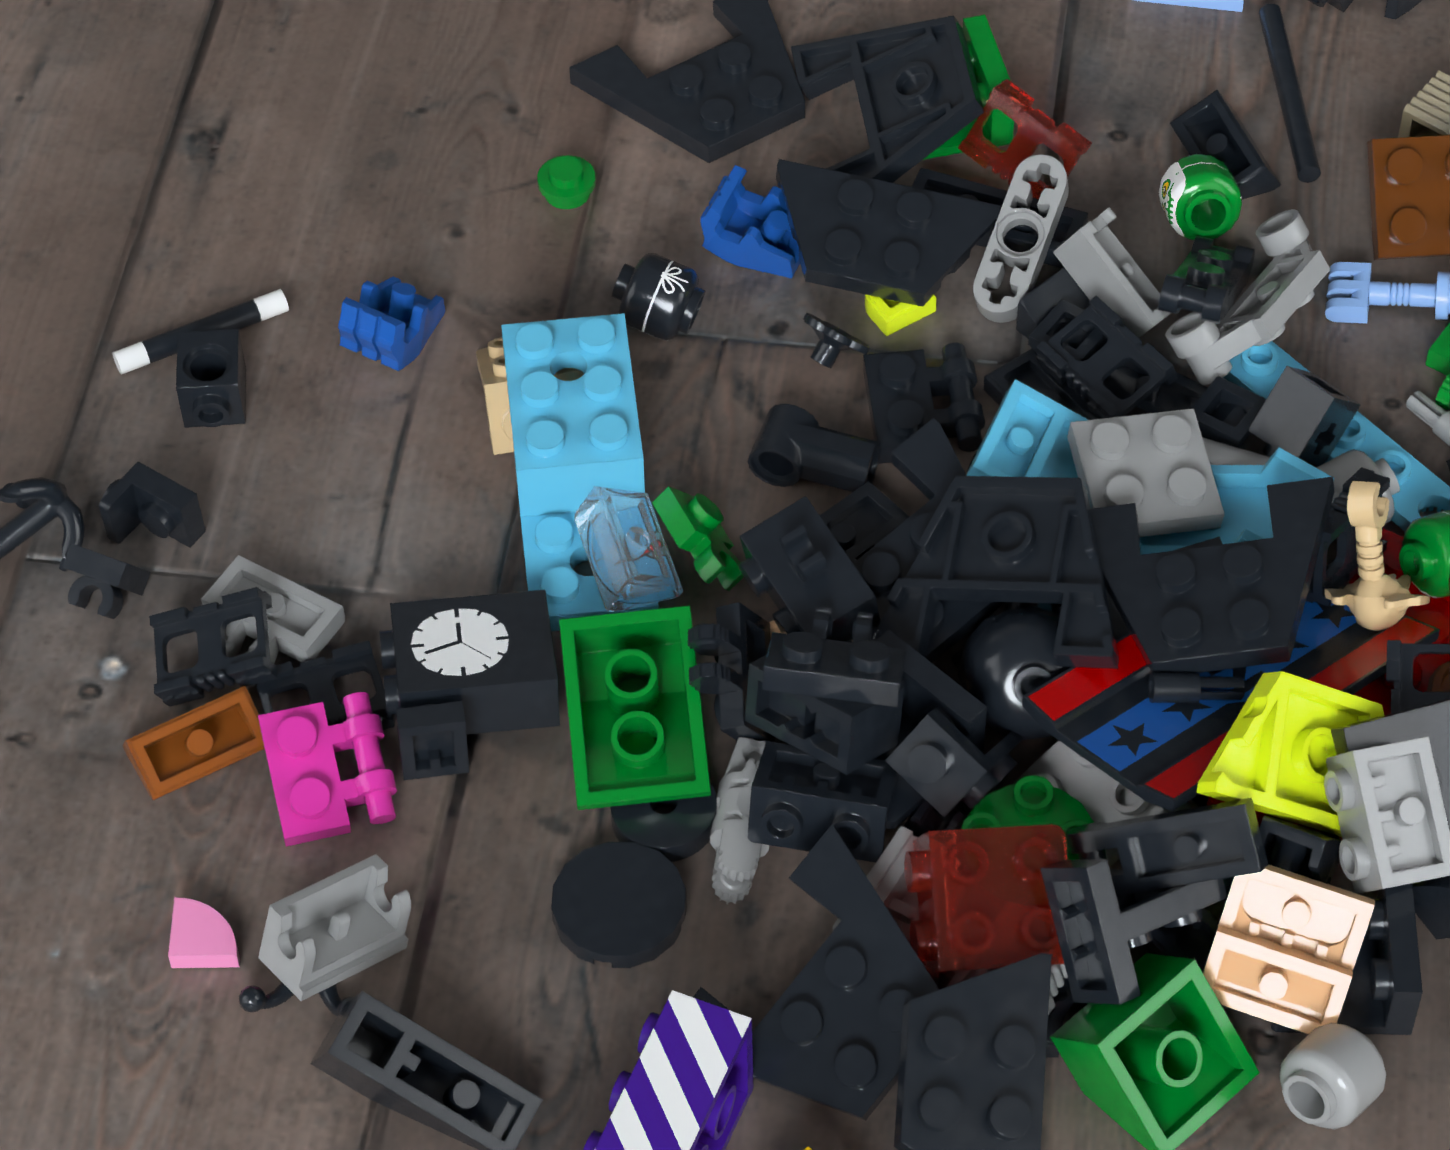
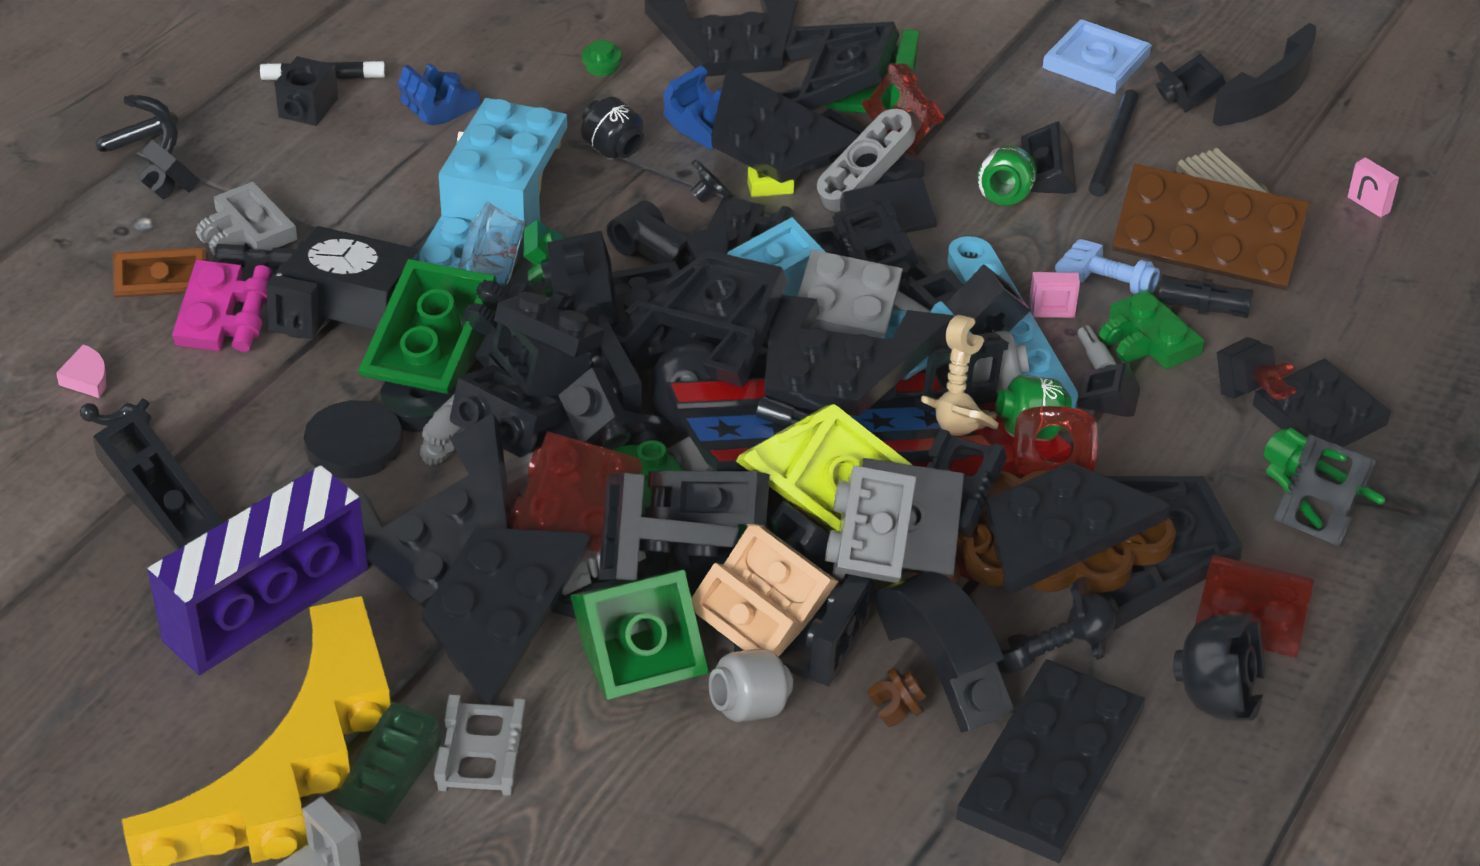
camera: 20 degrees right, 10 degrees down
(156, 502) = (219, 139): black bracket -> none
(213, 664) = (196, 232): black piece -> none
(334, 928) = (160, 383): light grey hinge -> none
(1109, 272) = (914, 198): light grey hinge -> none
(1207, 280) = (971, 214): black plate -> none
(1262, 308) = (1046, 227): light grey plate -> none
(1358, 360) = (1054, 294): none -> bright pink tile

